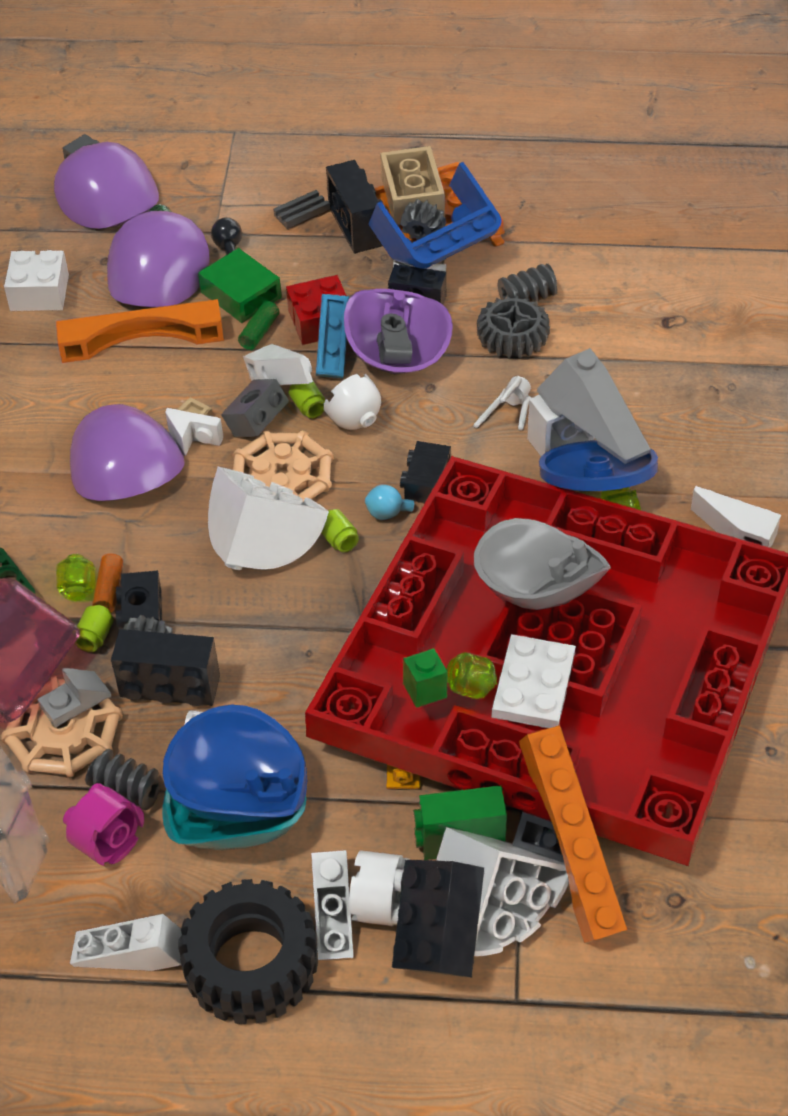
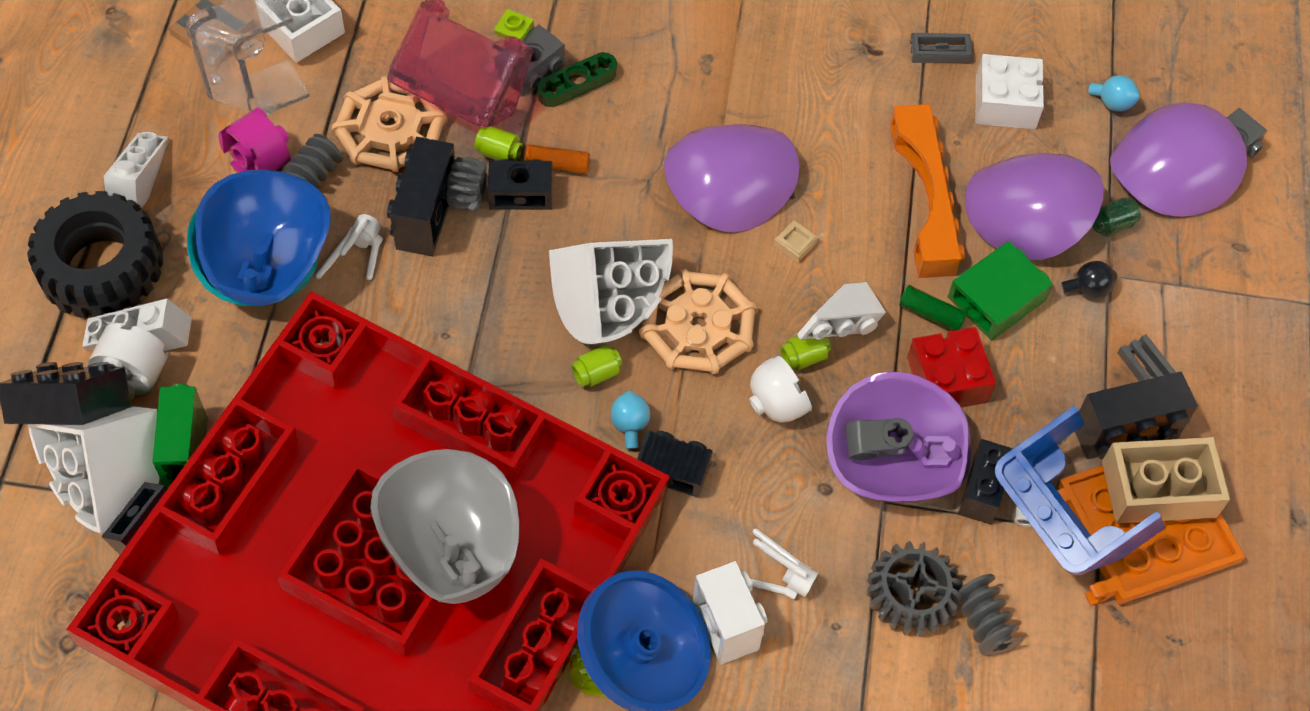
camera: 90 degrees right, 10 degrees up
(39, 218) = (1117, 93): none -> medium azure piece
(75, 577) = (565, 129): clear neon green head -> none
(79, 693) = (407, 120): light grey slope -> none
(191, 427) = (761, 229): white slope -> none
(255, 407) = (785, 292): dark grey brick -> none
(331, 337) = (923, 365): dark azure tile -> none
(421, 219) = (1088, 484): dark grey gear -> none
(425, 677) = (317, 392): green brick -> none
(471, 675) = (318, 441): clear neon green head -> none
(533, 681) = (305, 506): white plate -> none
(587, 872) = (166, 497): orange arch -> none
(589, 399) = (709, 625): light grey wedge -> none

